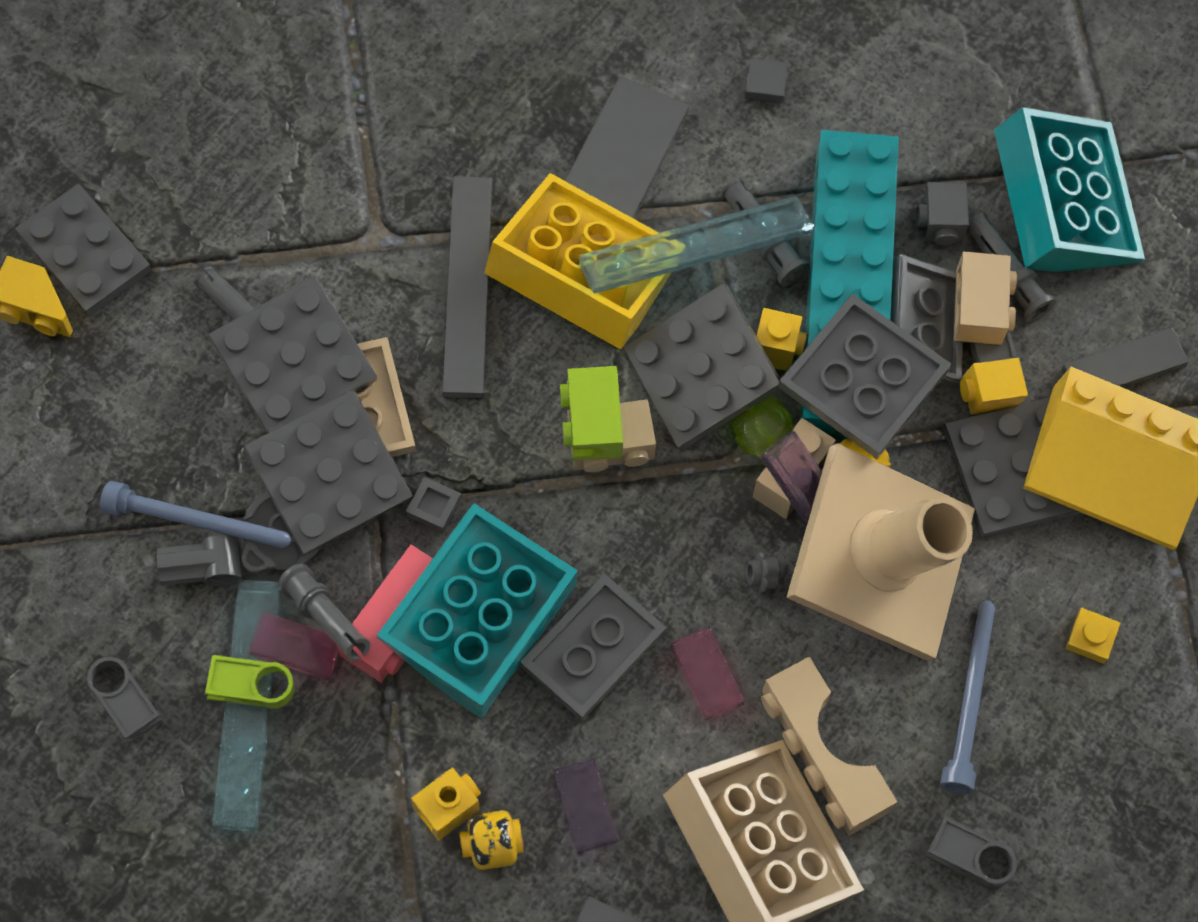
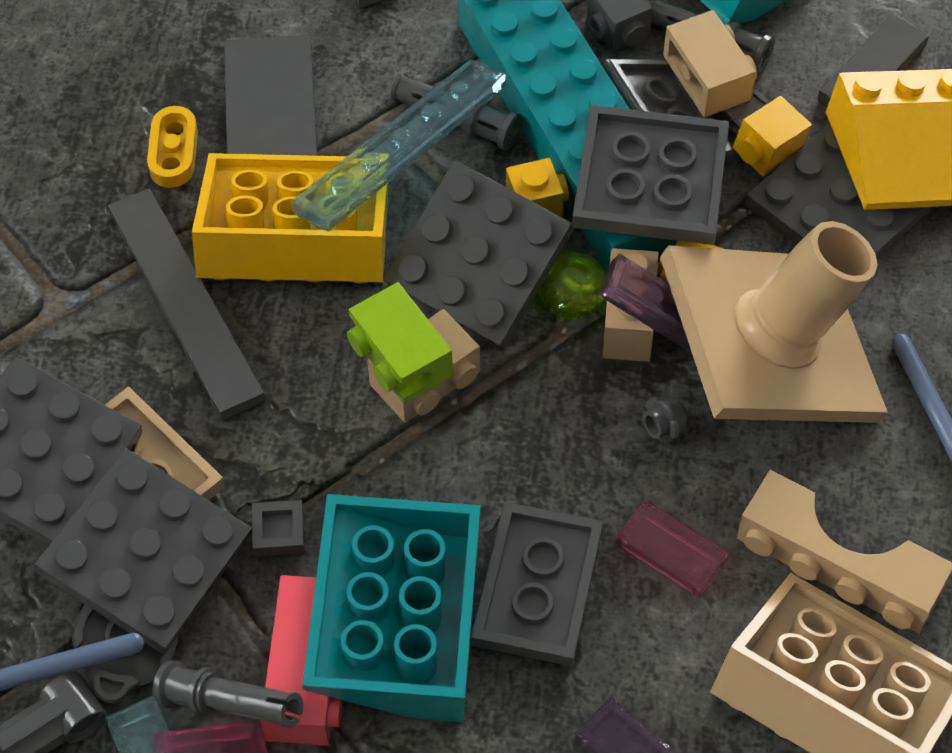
camera: 25 degrees left, 10 degrees down
(527, 153) = (172, 150): none -> yellow plate

